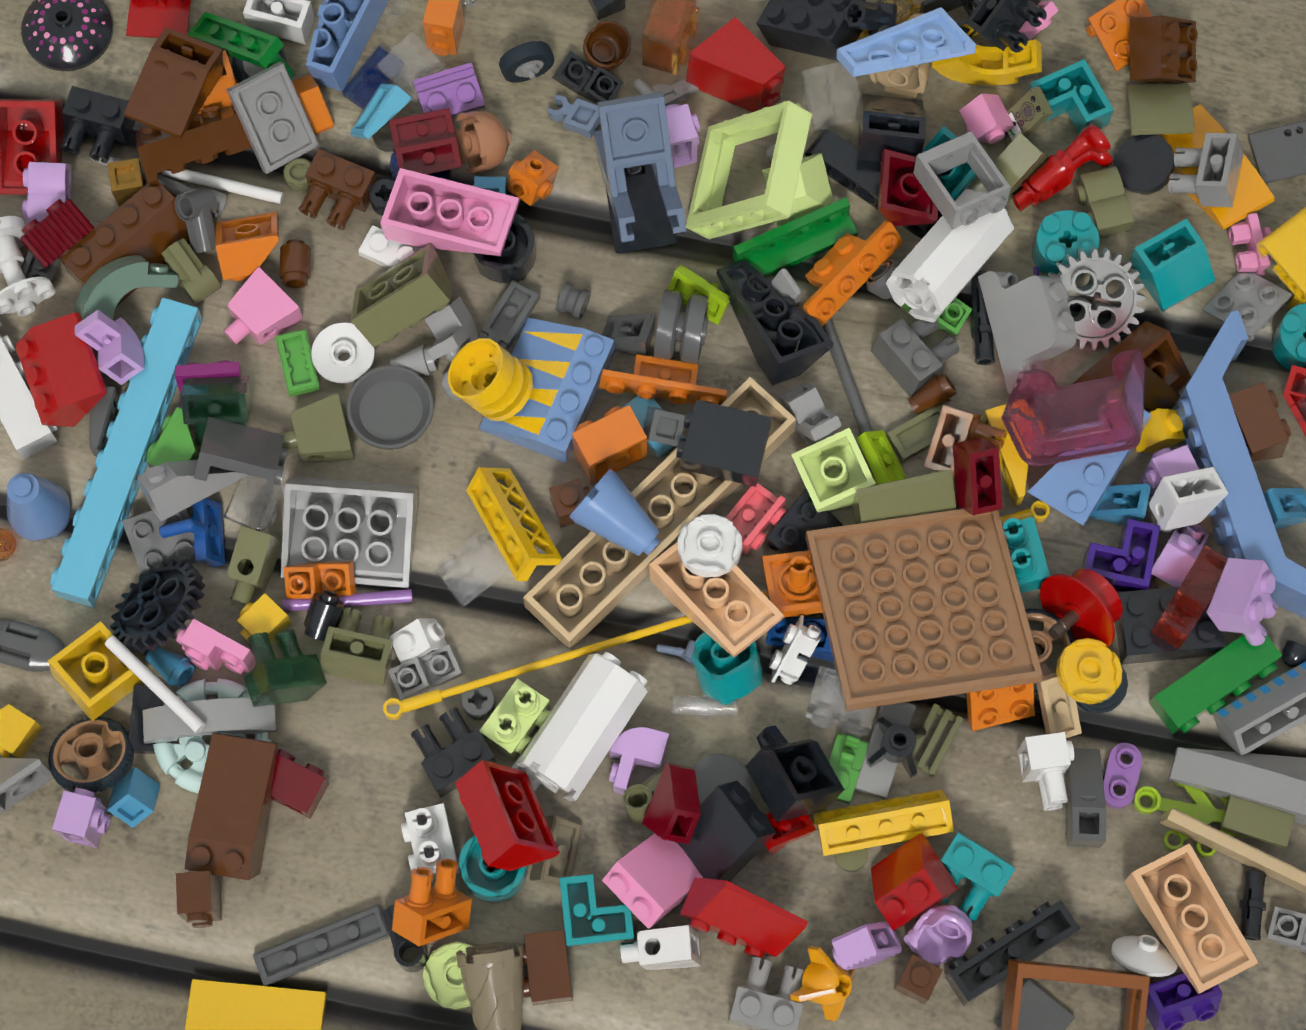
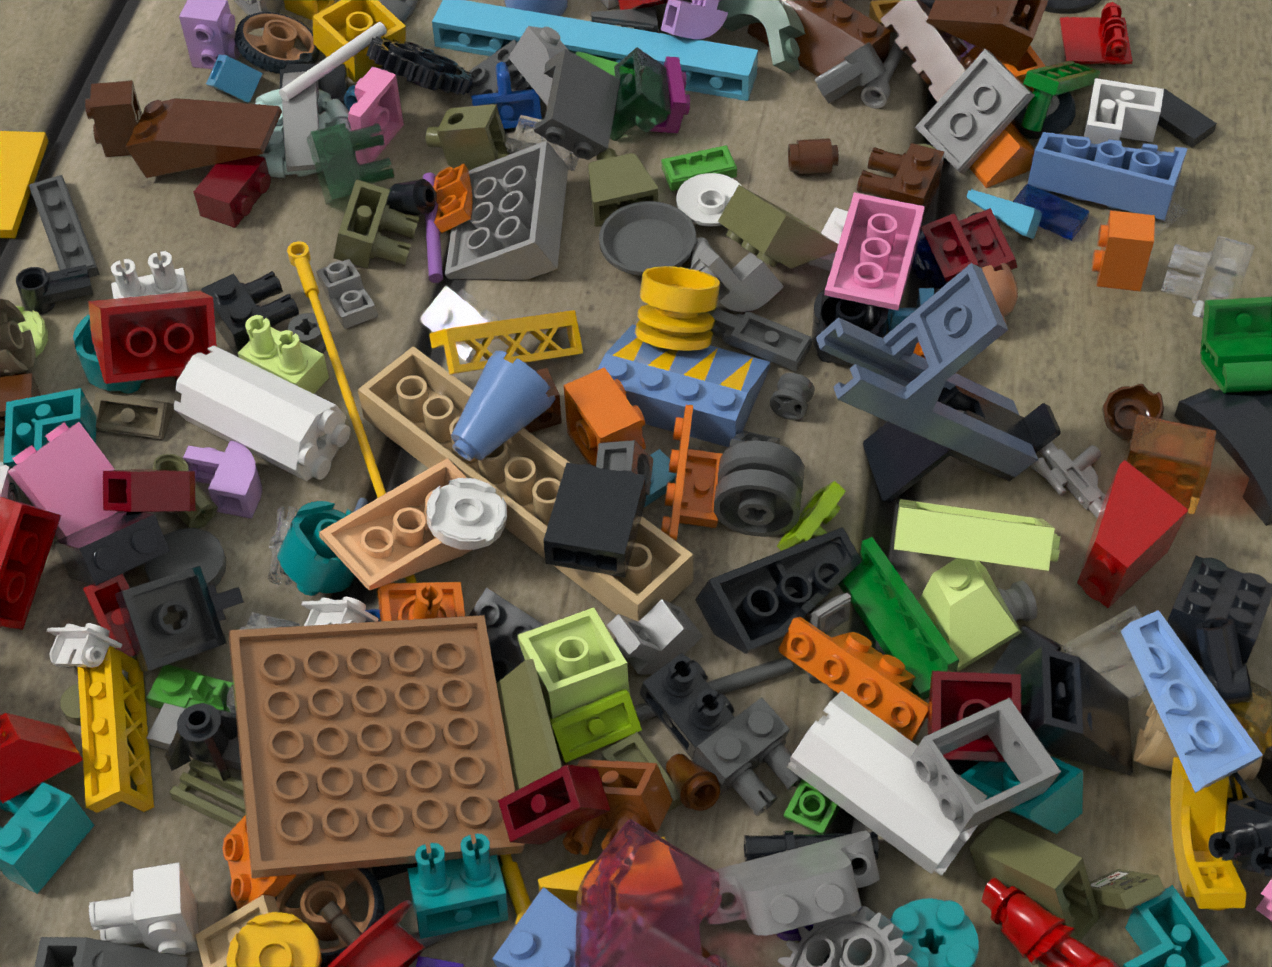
camera: 90 degrees right, 20 degrees down
(194, 277) = (788, 83): olive piece -> none
(227, 185) = (900, 105): white bar -> none
(245, 244) = (829, 113): orange slope -> none
(261, 310) = (757, 133): bright pink torso -> none
(262, 617) = (409, 155): yellow brick -> none
(408, 62) = (1066, 241): clear piece -> none
(418, 639) = (384, 283): white bracket -> none
(432, 911) = (65, 285): orange brick -> none
(450, 89) = (1044, 274): medium lavender plate -> none
(526, 61) = (1093, 332): black wheel -> none
(580, 117) = (1035, 390): sand blue plate -> none
(586, 80) = (1084, 405): black slope -> none
(683, 134) = (1019, 476): lavender brick -> none
(755, 515) = (518, 581): coral bracket -> none
(815, 840) = (80, 645): none -> white hinge
(875, 390) = (686, 702): none -> black brick
(987, 118) = (1113, 844): bright pink brick -> none

